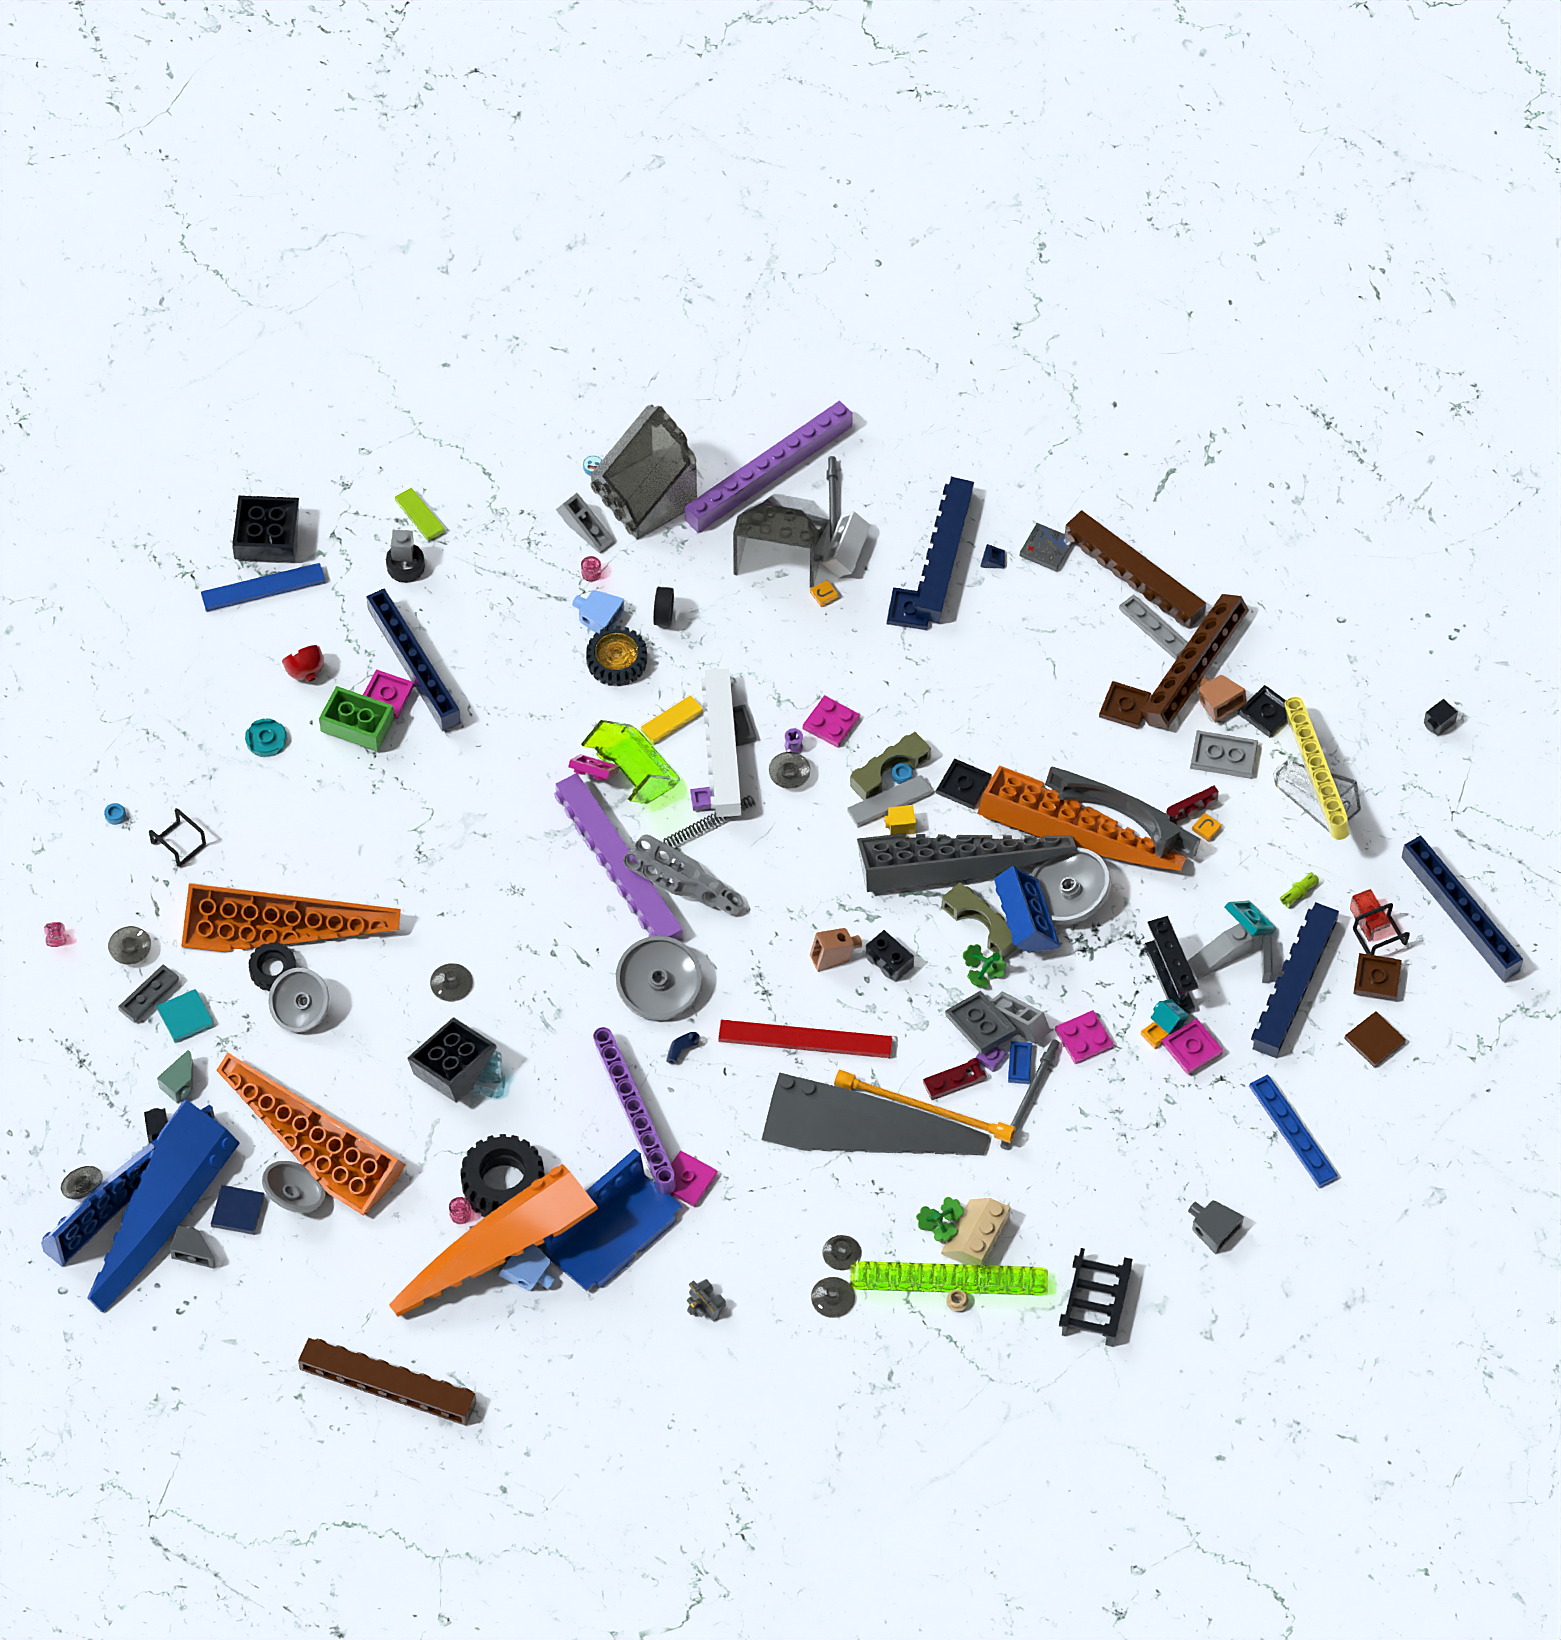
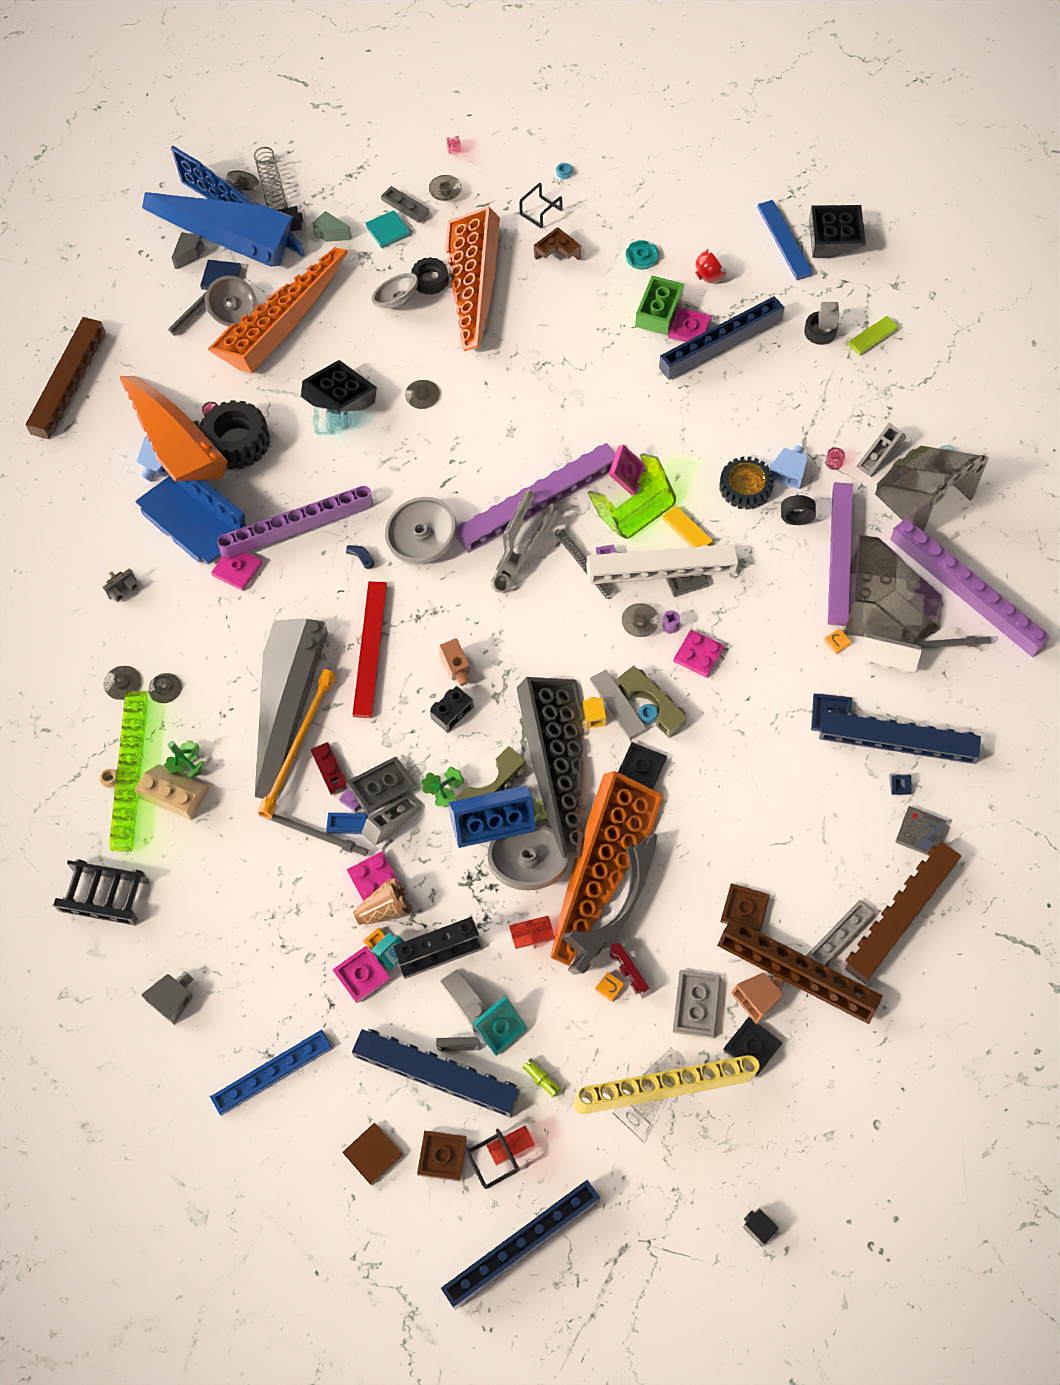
camera: 90 degrees right, 5 degrees up
(141, 1129) = (274, 180): none -> light grey piece
(244, 821) = (558, 241): none -> reddish brown panel
(292, 1239) = (188, 315): none -> dark grey axle
(716, 577) = (840, 554): none -> medium lavender beam
(1119, 1020) = (384, 904): none -> medium nougat cone
(1151, 887) = (531, 932): none -> clear red panel

